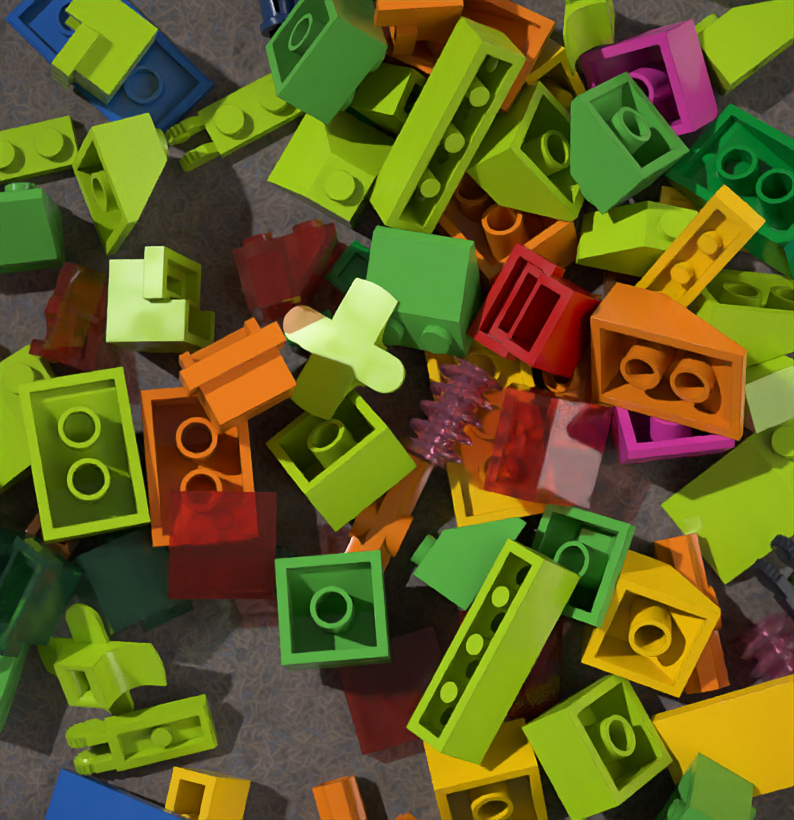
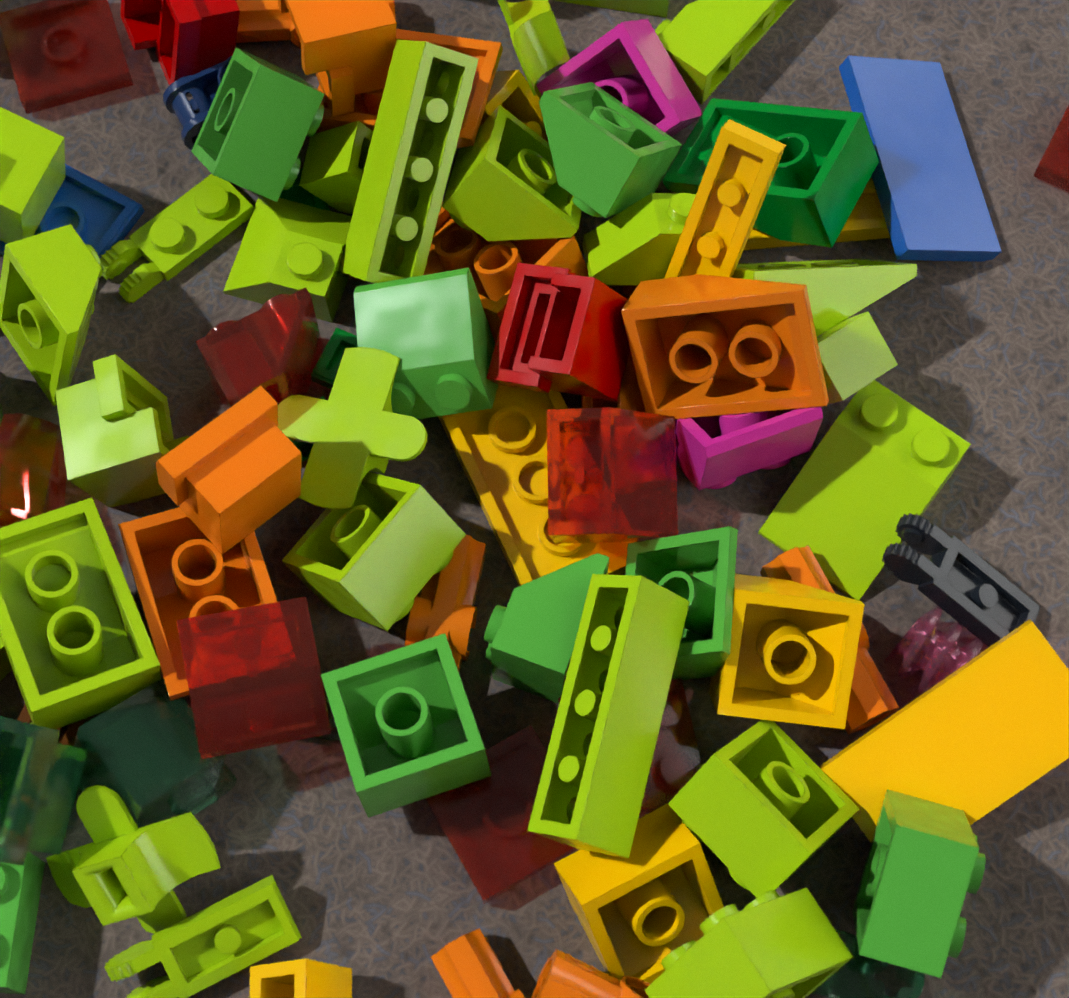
camera: 20 degrees left, 15 degrees down
(451, 413) = (488, 469): clear pink piece -> none

